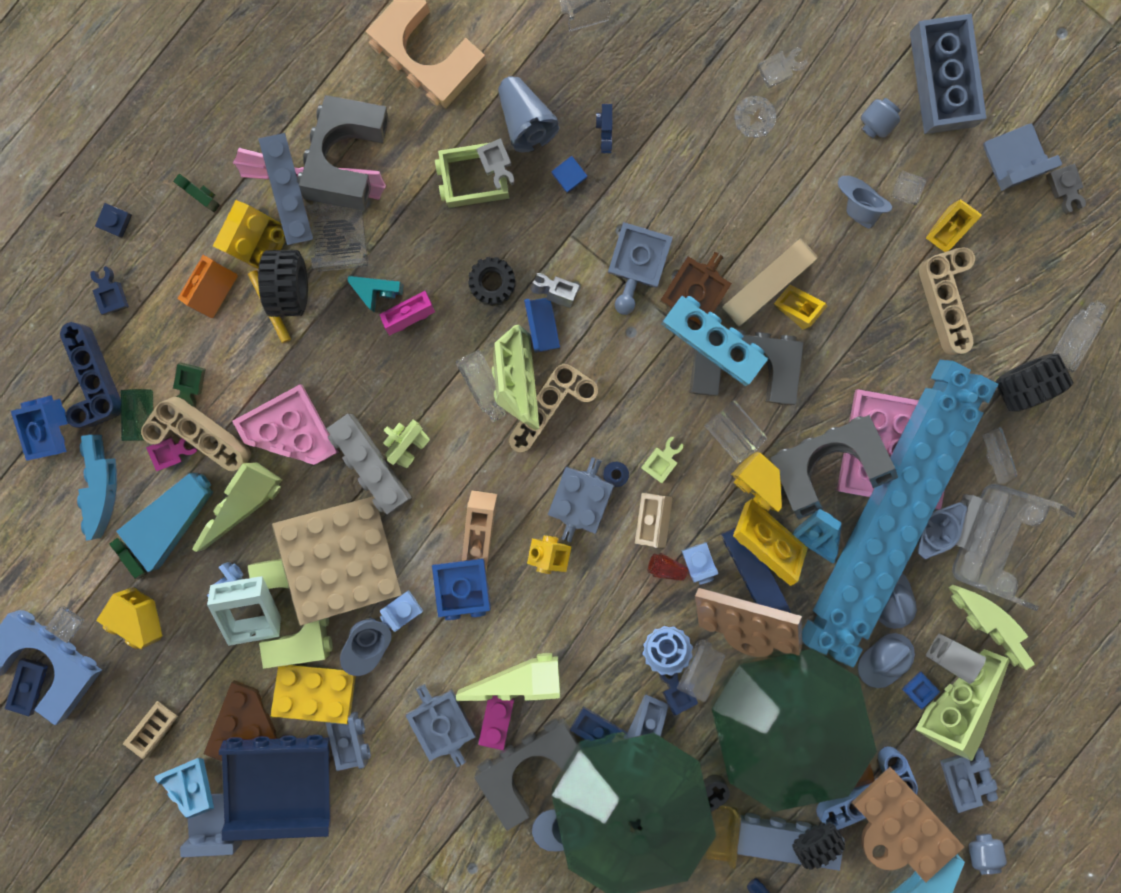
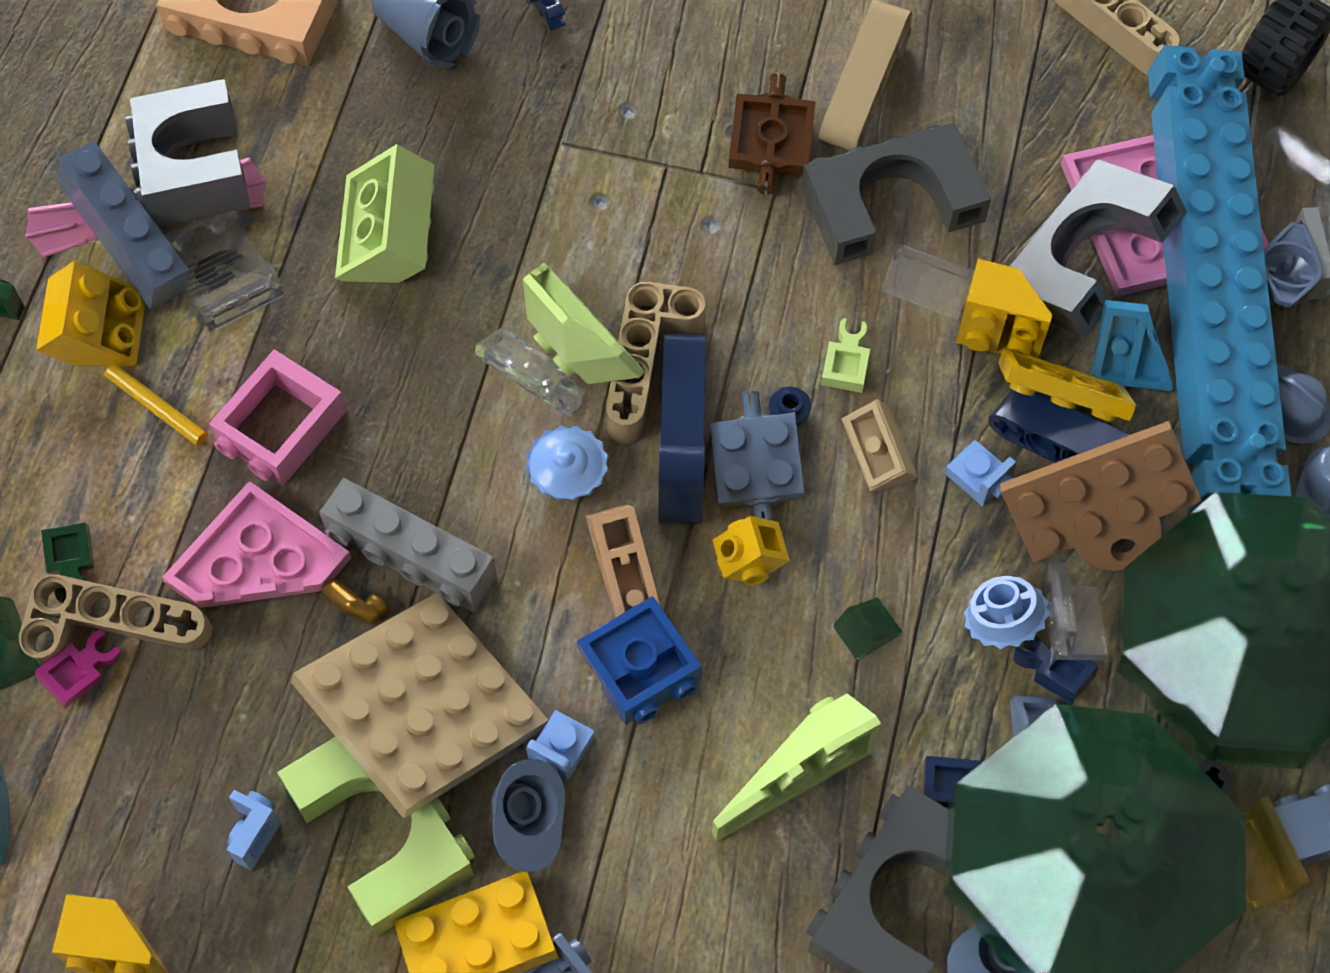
camera: 25 degrees left, 25 degrees down
(128, 559) = (73, 866): dark green plate -> none
(163, 523) = (107, 776): dark azure slope -> none
(207, 286) = (47, 412): orange panel -> none
(244, 593) = (280, 805): light aqua window -> none
(246, 493) = (234, 669): yellowish green wedge -> none
(283, 283) = (168, 344): black tyre -> none
(326, 482) = (351, 604): none -> pearl gold arm
(353, 337) = (297, 381): none -> bright pink window
(368, 289) = (299, 310): teal slope -> none
(407, 313) = (380, 314): dark pink plate -> none
(412, 434) = (456, 479): yellowish green hips -> none
(440, 725) = (712, 895): sand blue plate -> none
(444, 246) = (386, 218): none -> yellowish green slope
(446, 191) = (375, 90): yellowish green window -> none
(475, 455) = (567, 462): none -> light blue piece
(492, 265) = (474, 215): black tyre -> none
(495, 161) = (412, 72): light grey plate -> none
(496, 723) = (799, 850): dark pink plate -> none
(542, 325) = (576, 261): blue panel -> none
(549, 462) = (682, 429): none -> dark blue beam
(557, 291) = (583, 208): flat silver plate -> none
(569, 174) = (520, 71): blue tile -> none
(592, 620) = (866, 627): none -> clear green slope
(640, 259) = (671, 126): sand blue plate -> none
(665, 567) = (936, 498): clear red cone -> none
(699, 339) = (813, 170): medium azure brick -> none
(800, 306) = (925, 93): yellow slope -> none

